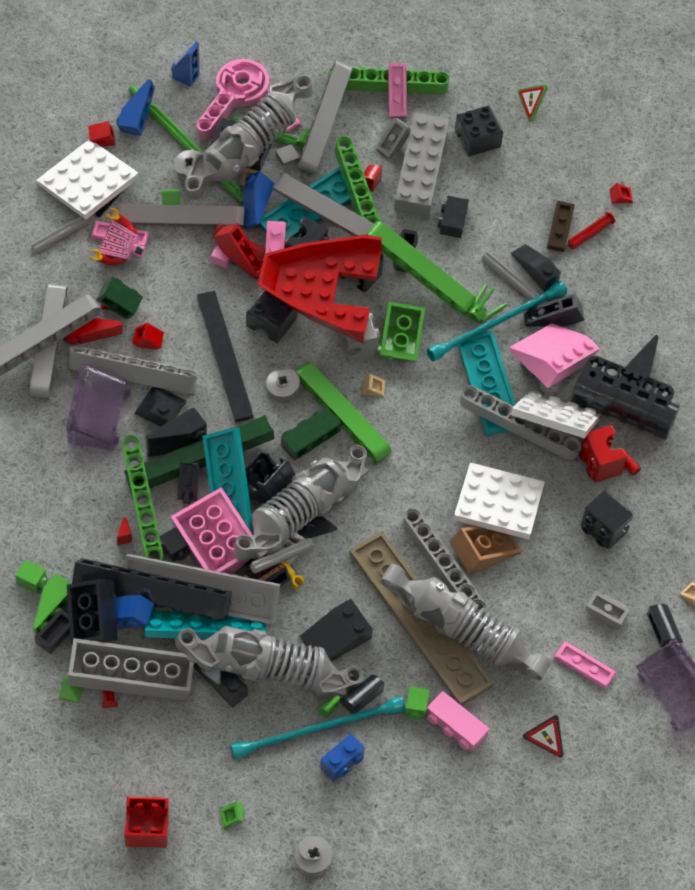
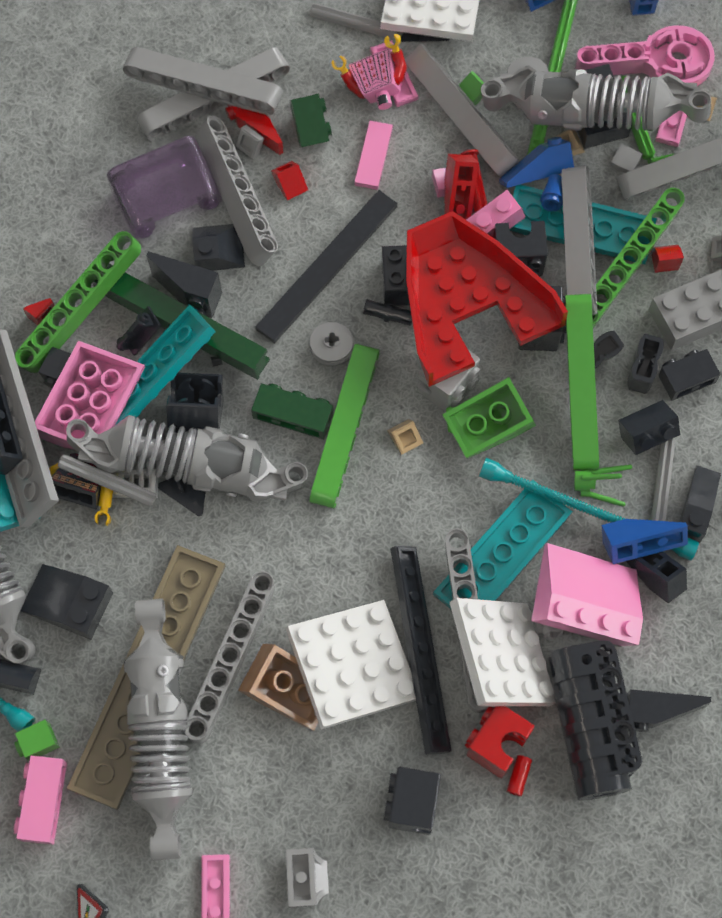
camera: 60 degrees right, 10 degrees up
(102, 341) = (249, 141): none -> light grey tile
(169, 282) = (373, 155): none -> bright pink tile
(283, 204) = (552, 195): none -> blue cone
(285, 342) = (387, 312): none -> black pin
(431, 232) = (645, 363): none -> black brick
(472, 257) = (649, 427): none -> black brick
(515, 462) = (420, 650): none -> black tile
(537, 305) = (638, 538): none -> blue slope

